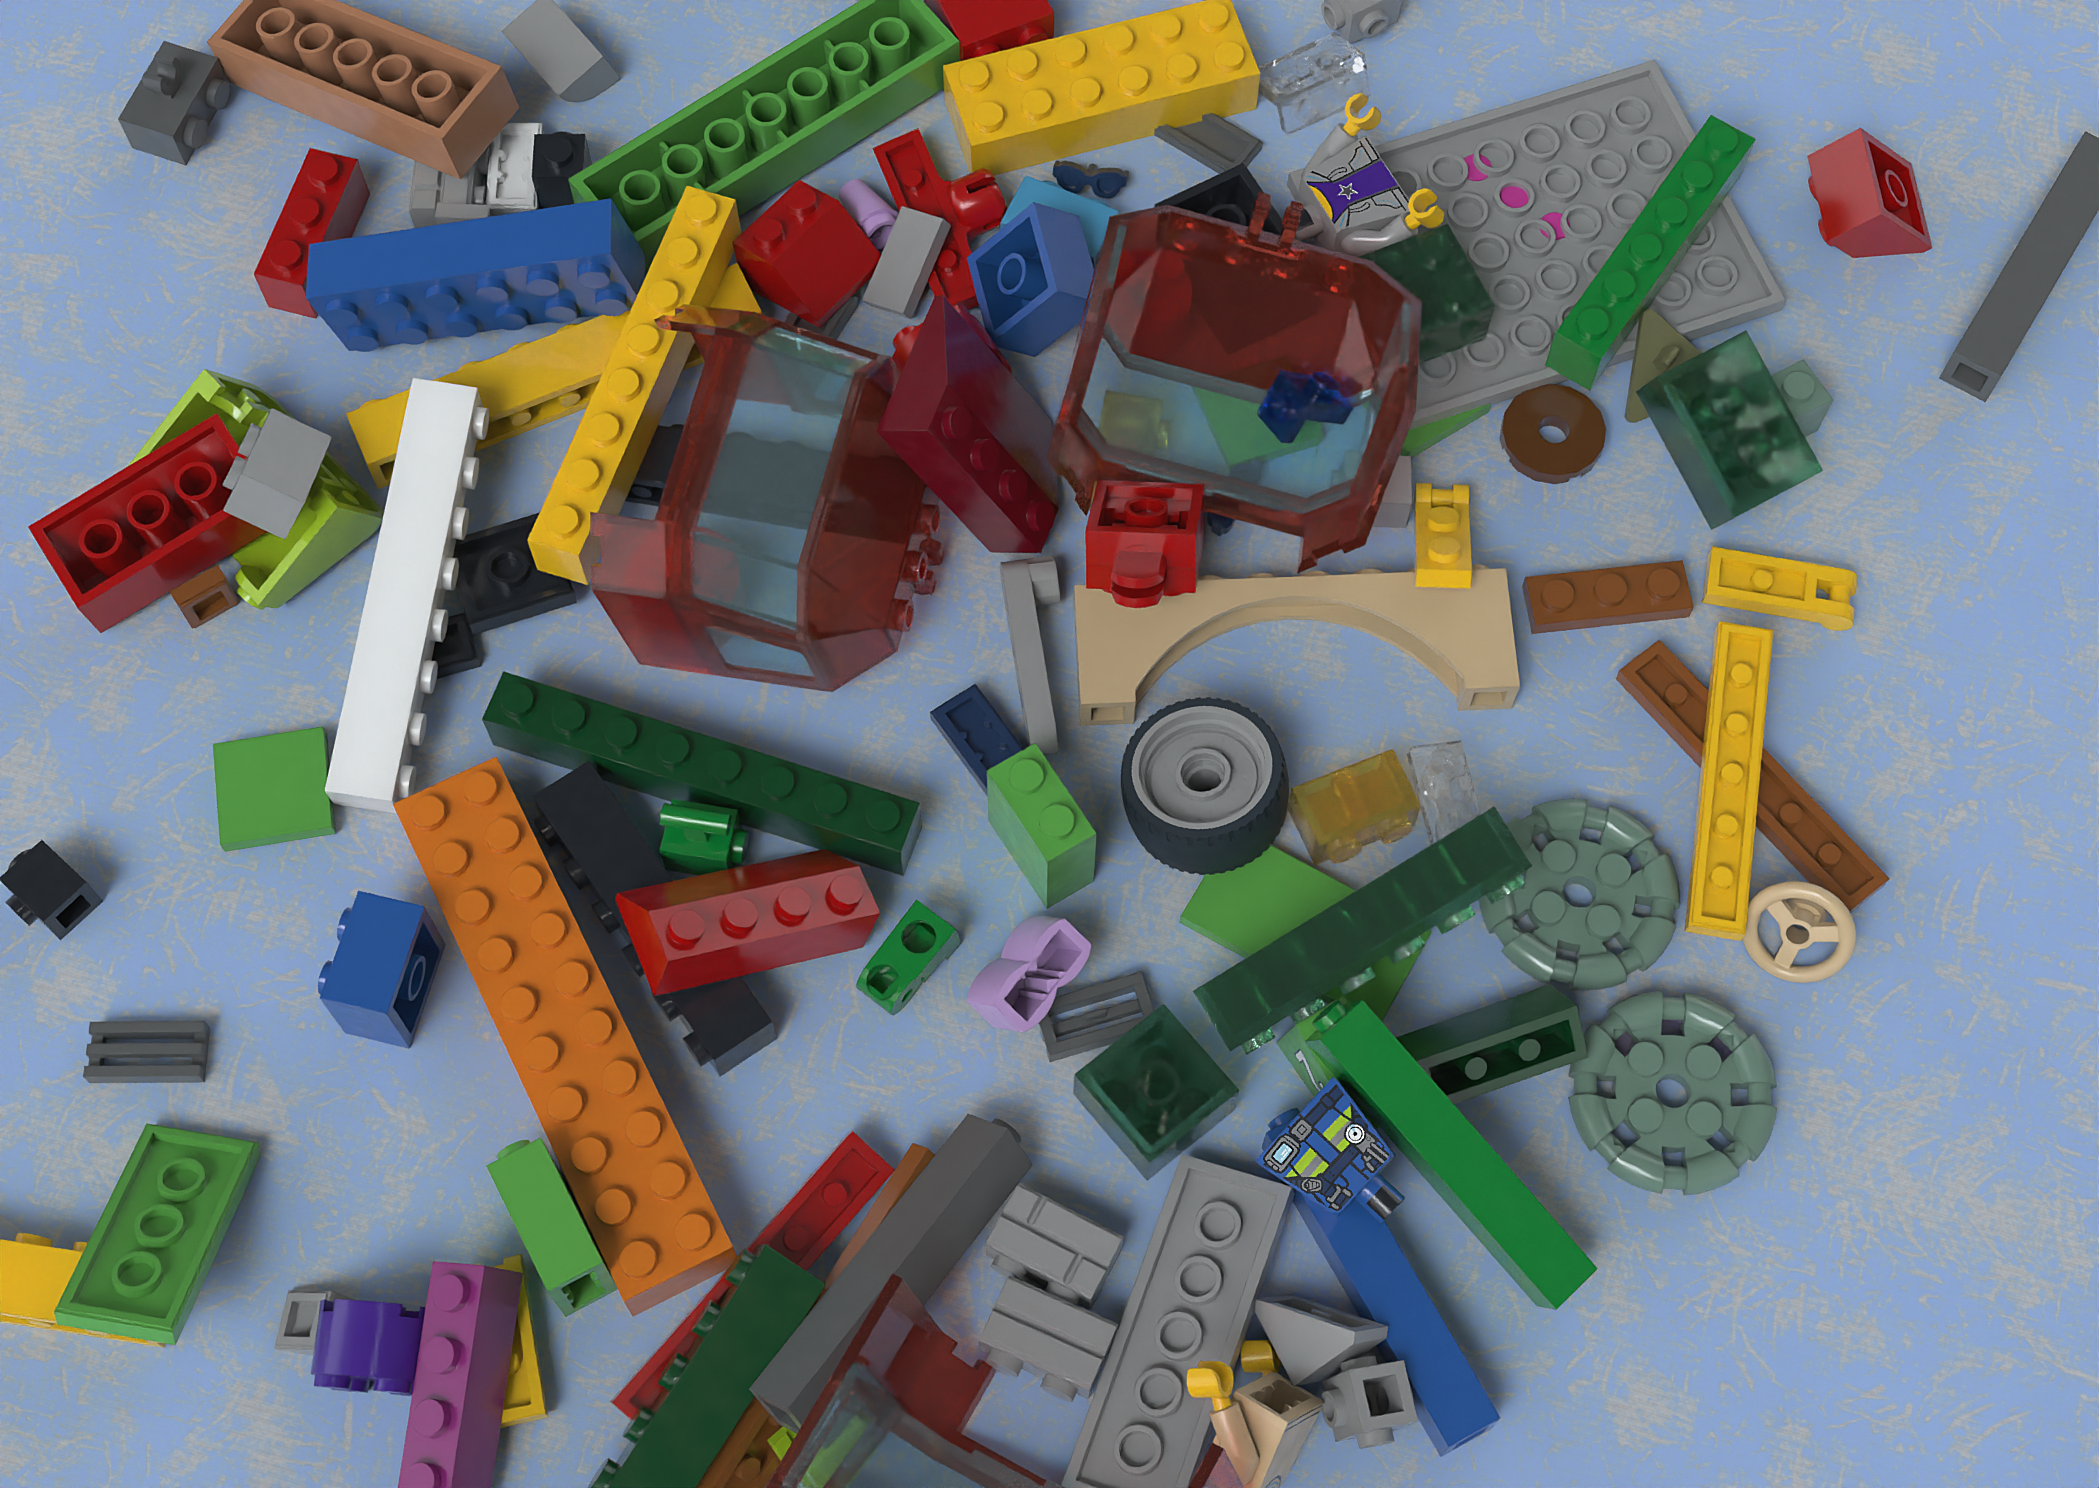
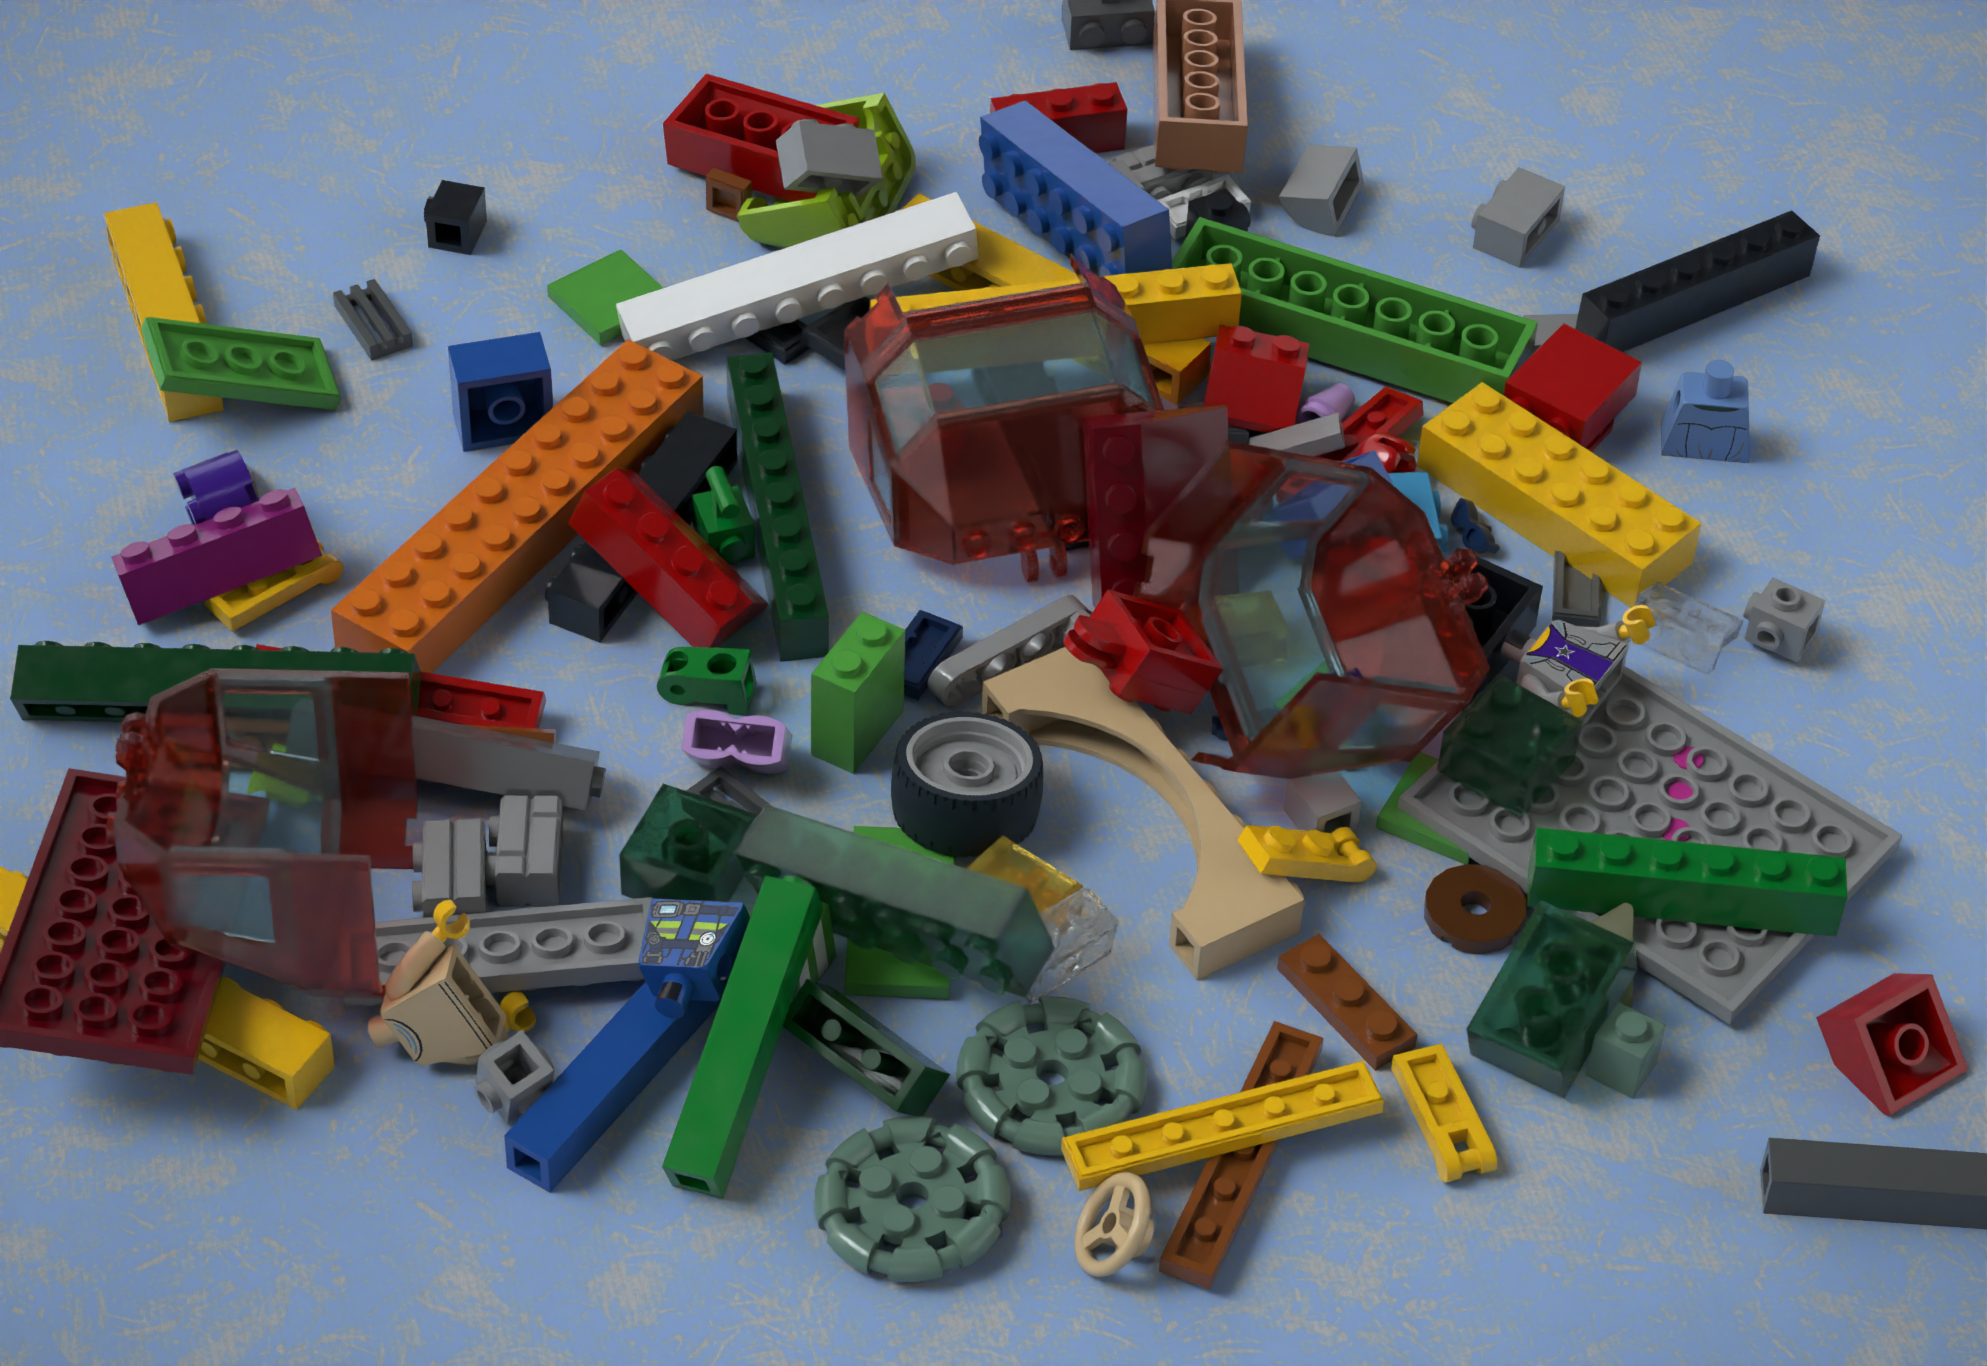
camera: 60 degrees right, 20 degrees down
(551, 1225) = (358, 543): bright green brick -> none
(1315, 1337) = (550, 1023): light grey slope -> none

